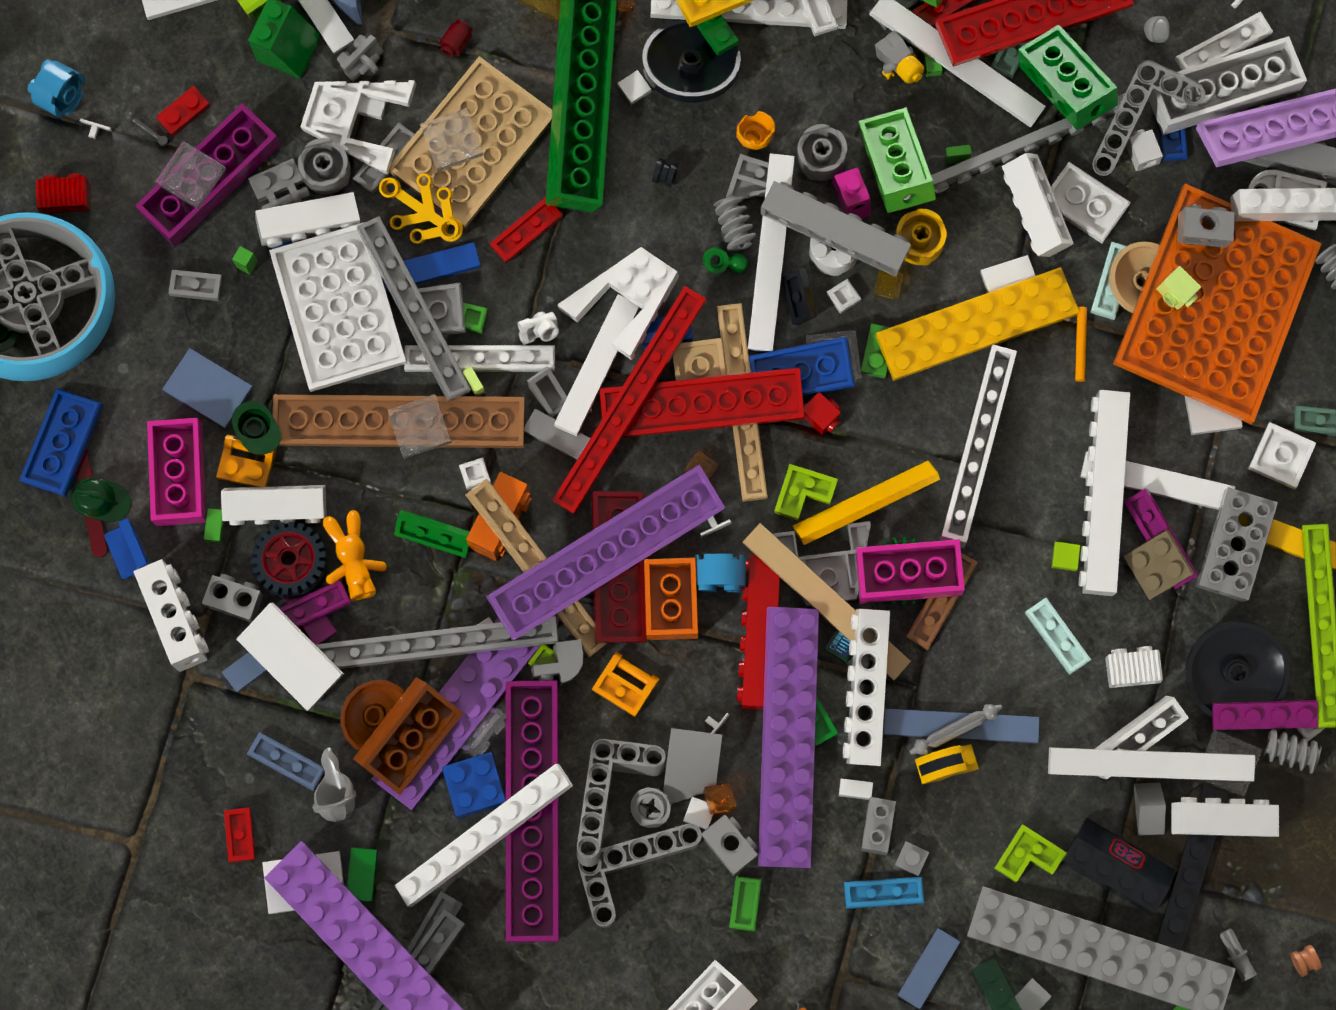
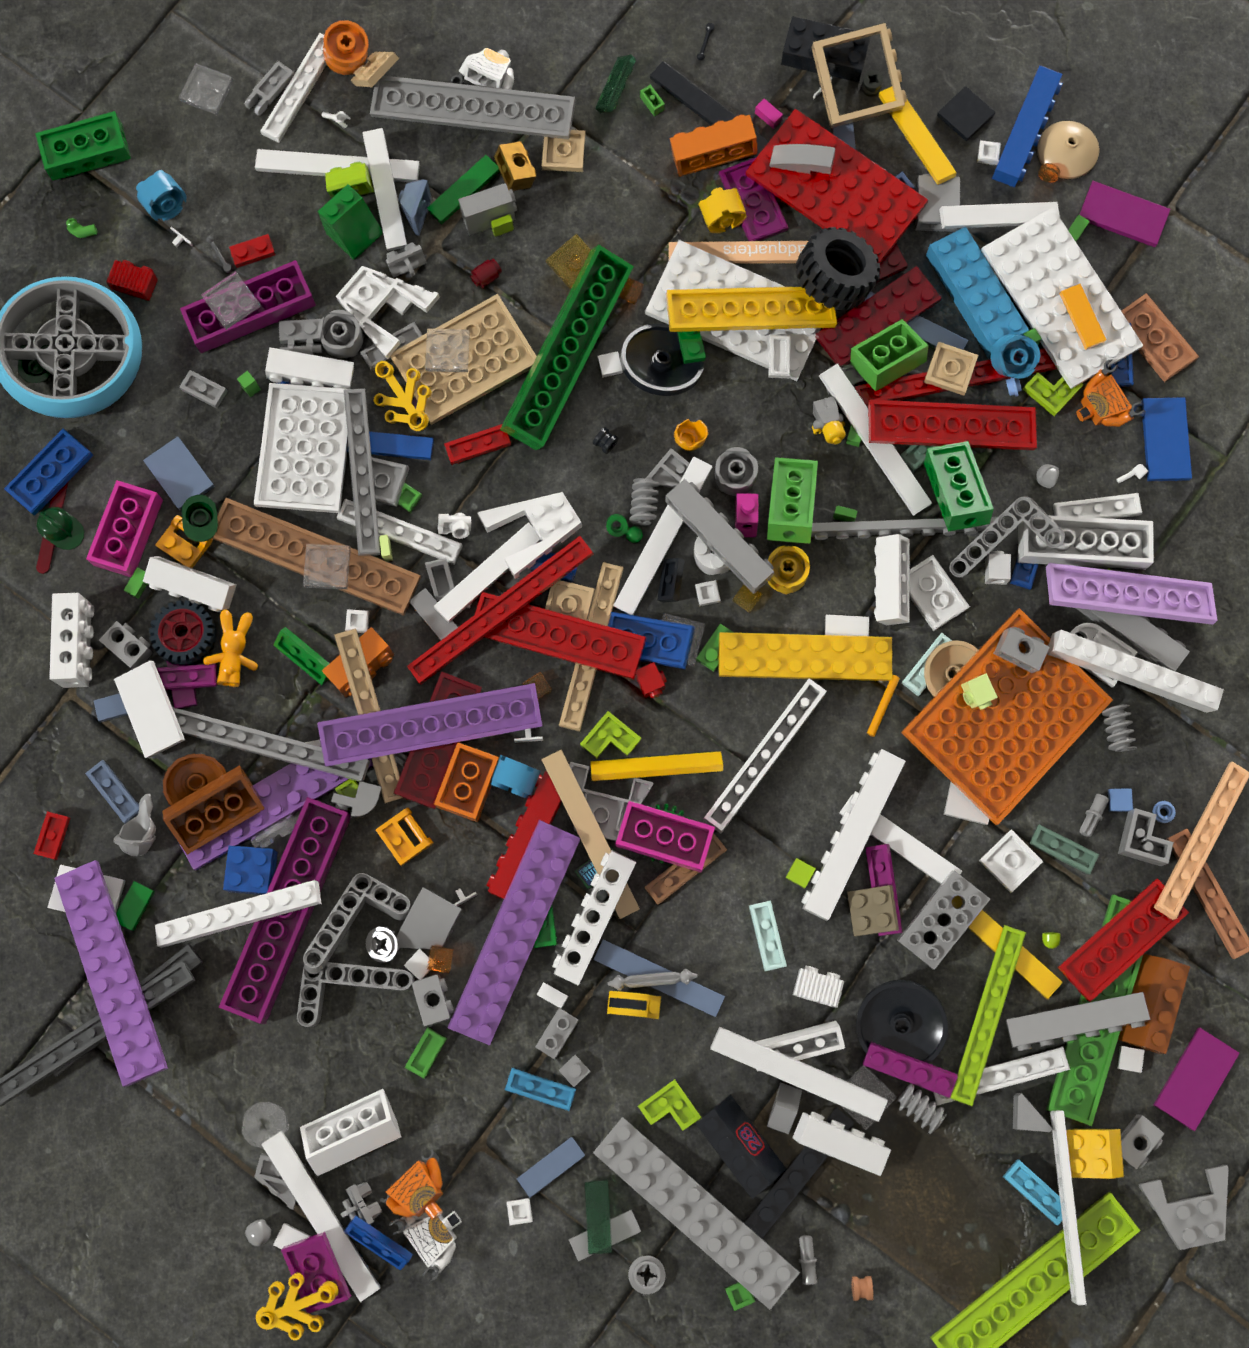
camera: 20 degrees right, 0 degrees up
(126, 549) = (63, 573): blue panel -> none

